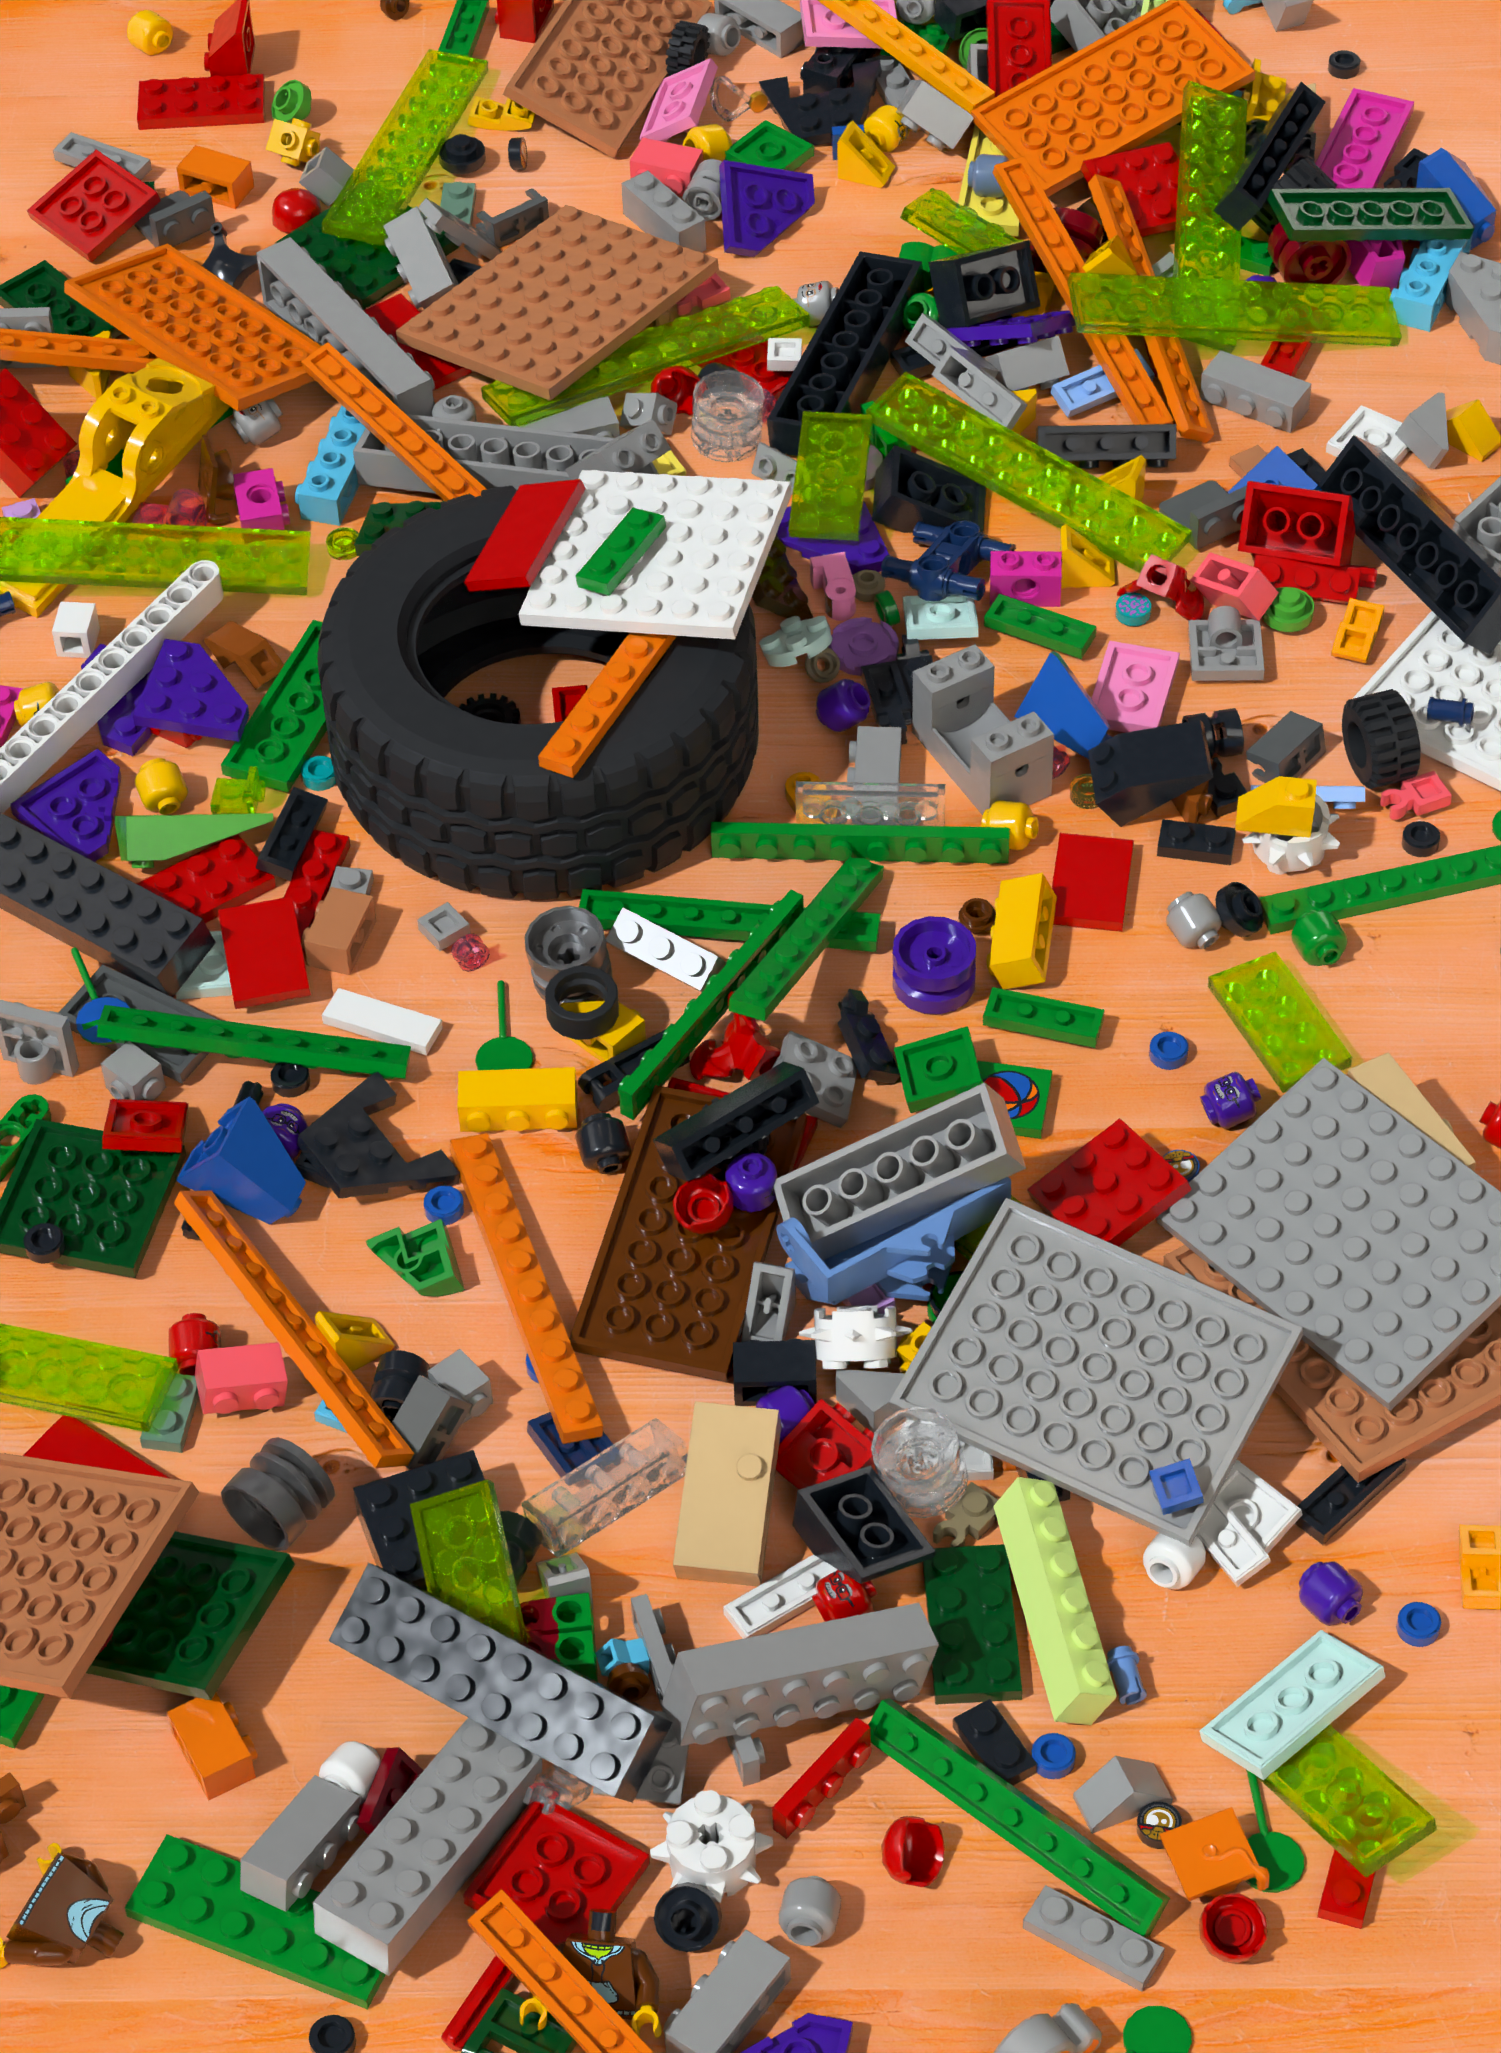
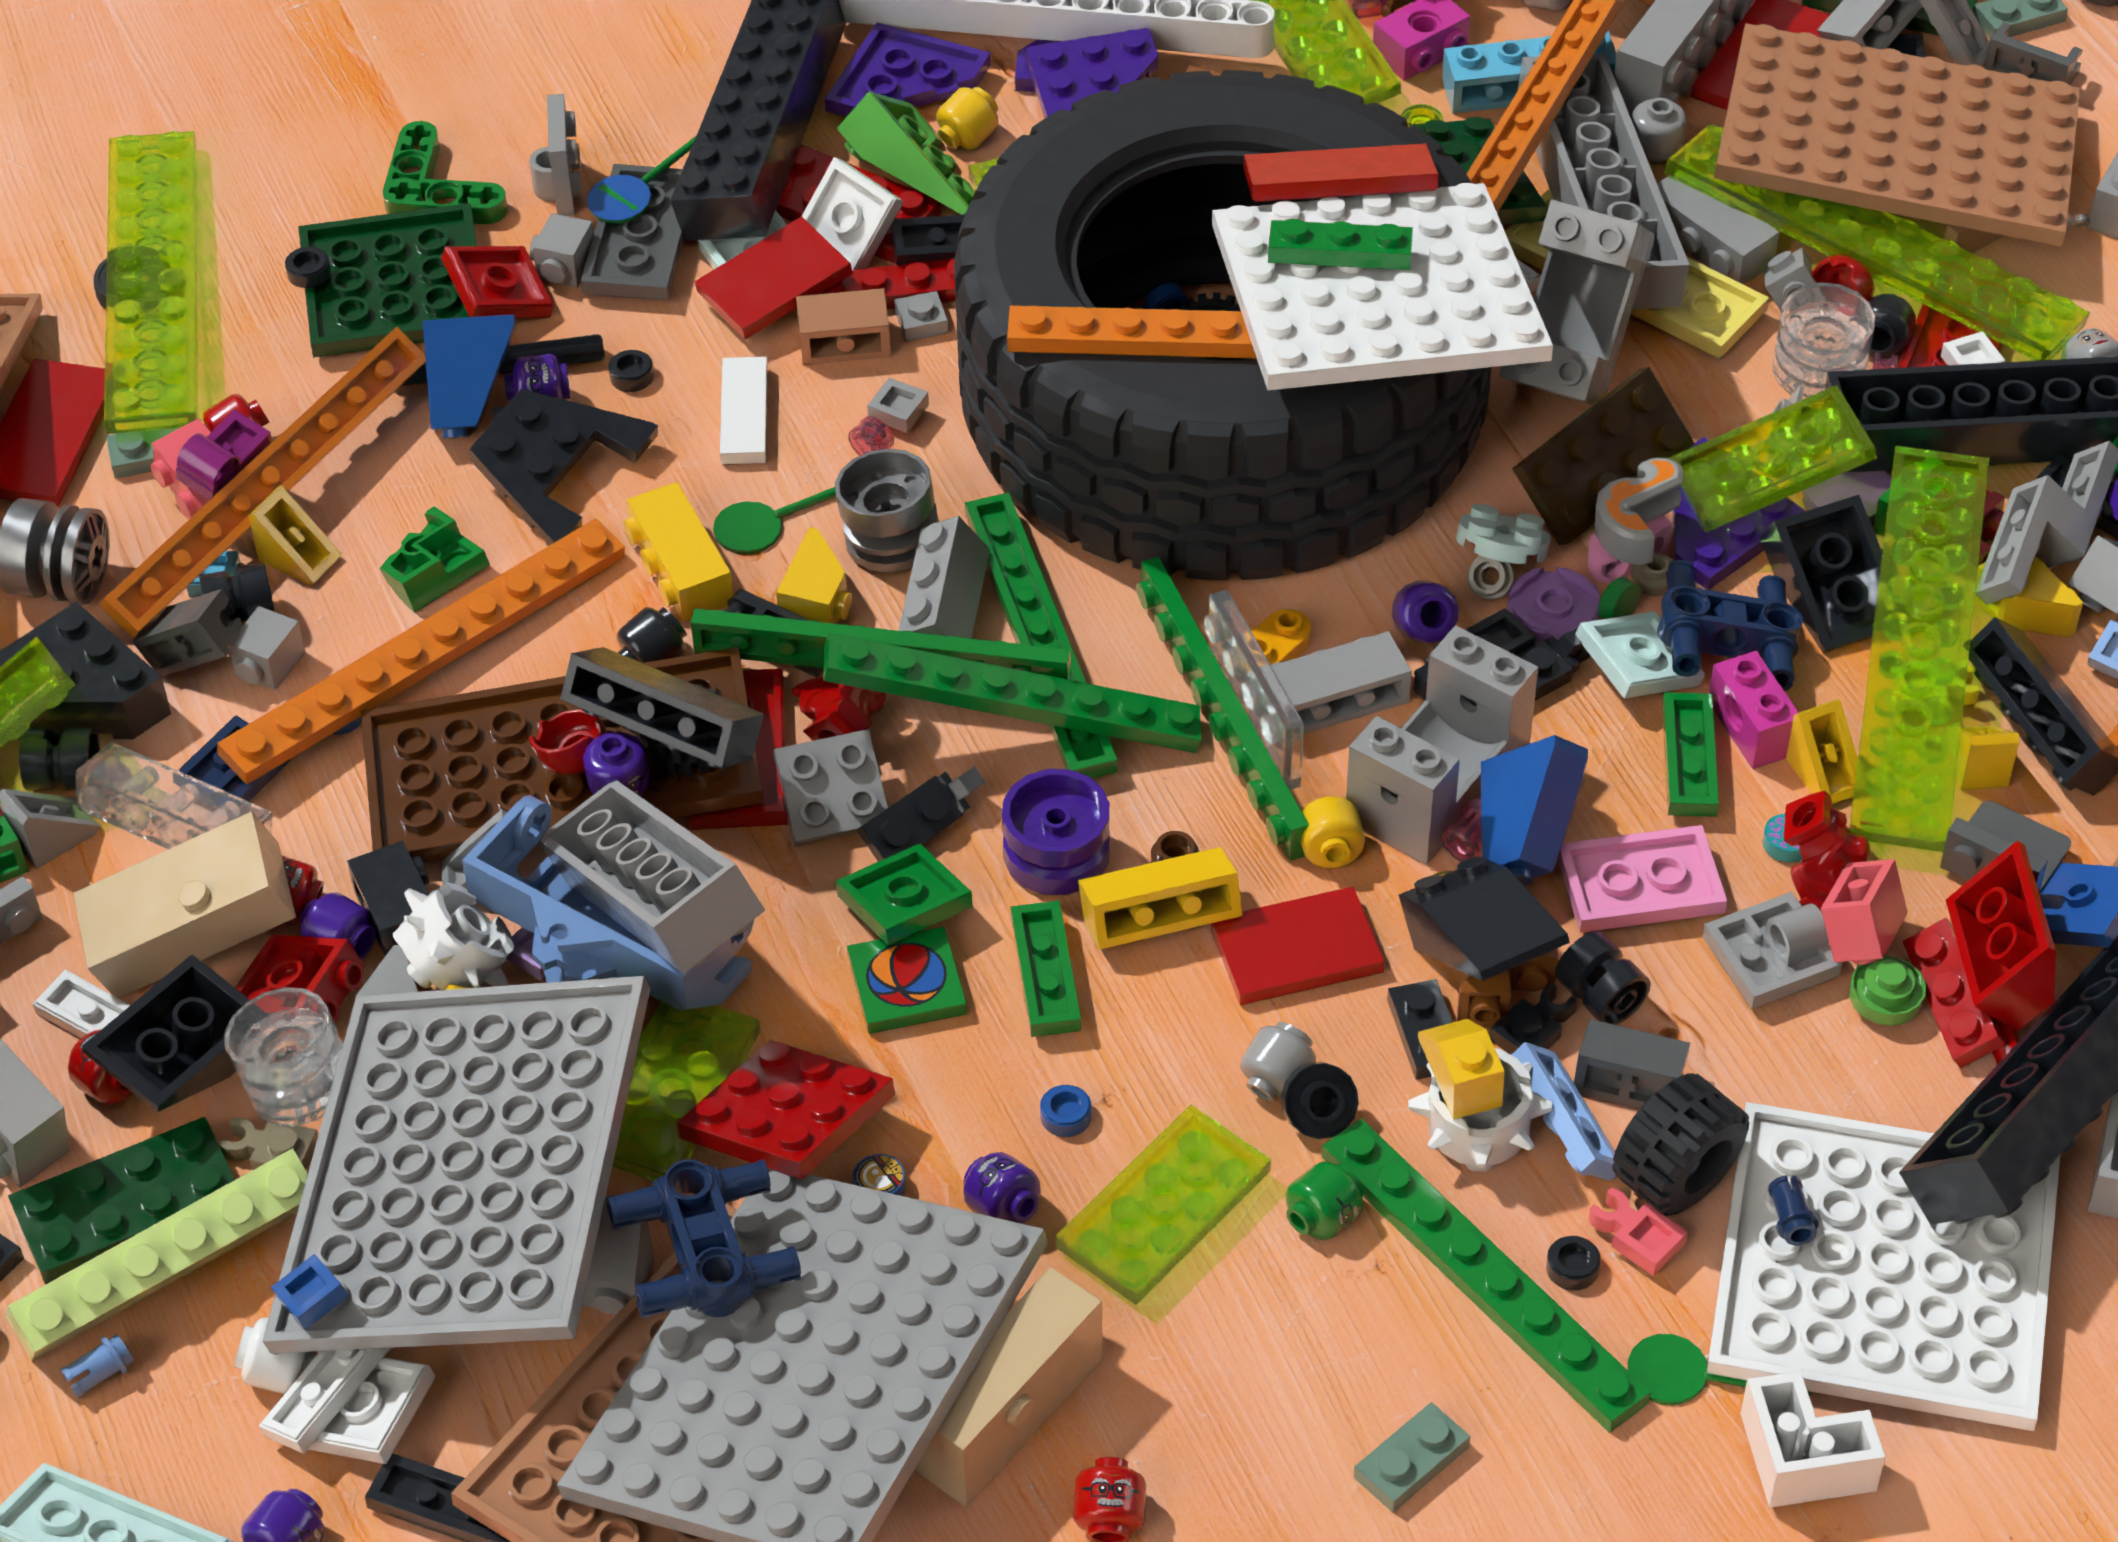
camera: 65 degrees right, 0 degrees up
(229, 880) = (851, 212): none -> white tile
(253, 1041) = (641, 317): green plate -> none
(263, 1347) = (214, 460): none -> magenta plate
(444, 1204) = (514, 548): blue tile -> none
(579, 980) = (811, 563): black tyre -> none
(707, 294) = (2034, 259): coral plate -> none
(829, 570) = (1630, 503): none -> light grey animal
(1241, 1243) = (703, 1238): none -> dark blue piece
(1358, 630) = (1907, 1083): light orange slope -> none

